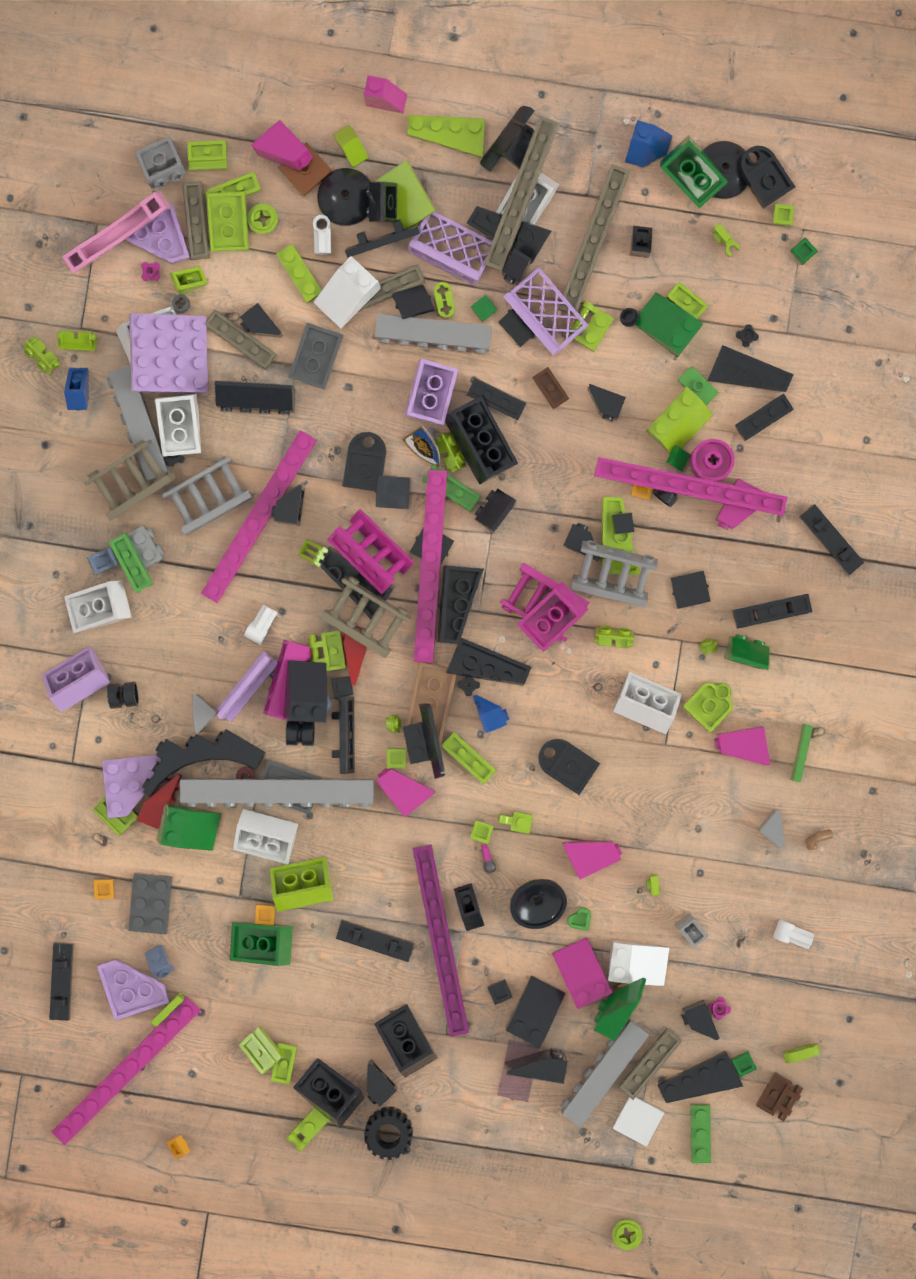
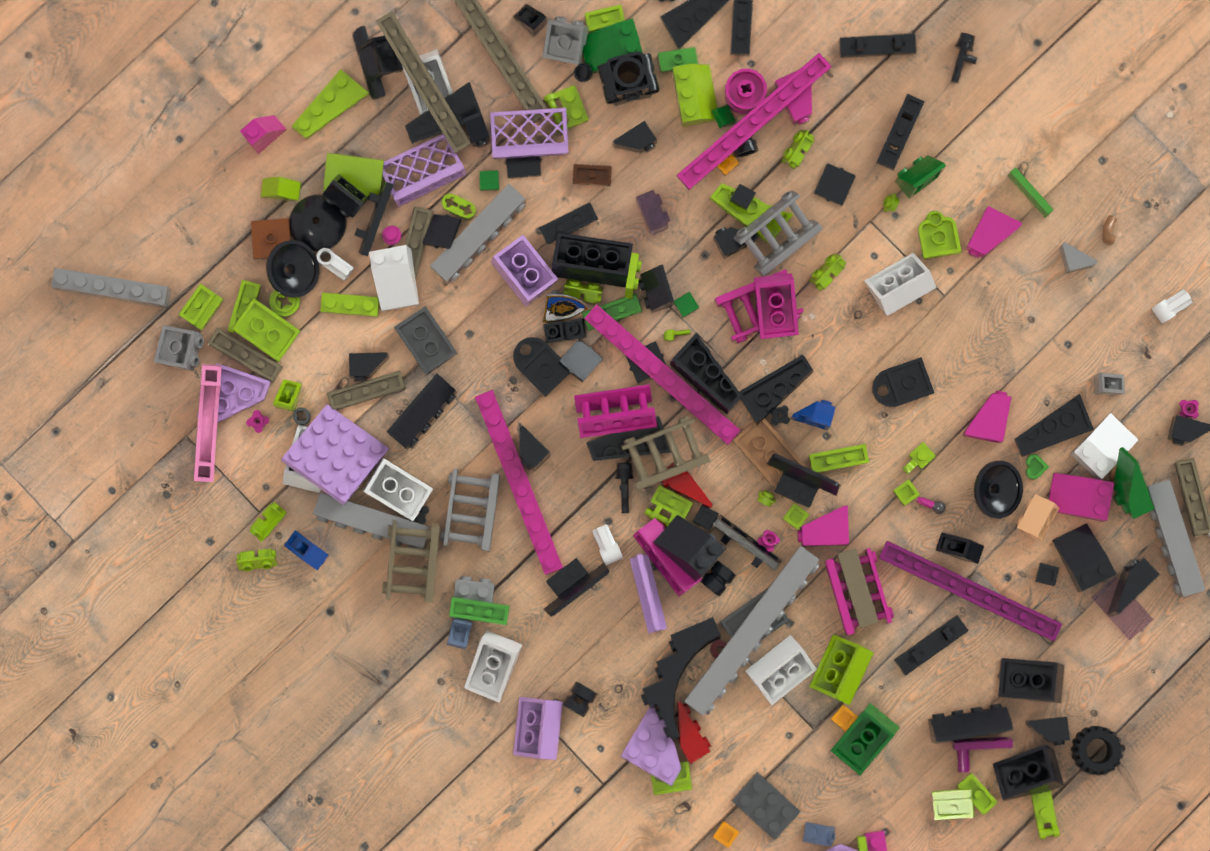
camera: 55 degrees left, 5 degrees down
(167, 71) = (111, 288): none -> light grey brick
(188, 827) = (727, 726): green slope -> none
(202, 713) = (642, 644): light grey slope -> none
(208, 619) = (571, 583): none -> black plate
(282, 147) = (241, 241): dark pink slope -> none
(299, 213) = (302, 268): none -> black dish
(315, 1026) = (964, 745): none -> magenta piece
(318, 555) = (588, 454): lime tile -> none
(327, 595) = (624, 472): none -> black piece
(333, 1018) = (970, 724): none -> black slope
(356, 750) = (774, 539): none -> dark pink plate
(367, 835) = (845, 605): none -> dark pink fence
(375, 850) = (857, 588): none -> dark tan tile
(380, 263) = (391, 235): none -> dark pink plate
(407, 461) = (565, 331): none -> black slope
(467, 548) = (670, 334): none -> lime hand
(485, 486) = (632, 281): none -> lime plate
(502, 543) = (686, 304): none -> green tile
(539, 951) = (1037, 517): none -> light nougat brick
(555, 459) = (651, 211): none -> clear purple brick
(628, 915) = (1057, 427): none -> black wing
(644, 282) = (565, 40): none -> light grey plate
(653, 885) = (1050, 387): lime plate -> none
(656, 375) = (621, 92): none -> black piece
(706, 536) = (792, 155): none -> lime hinge
(886, 610) = (964, 43): none -> black piece

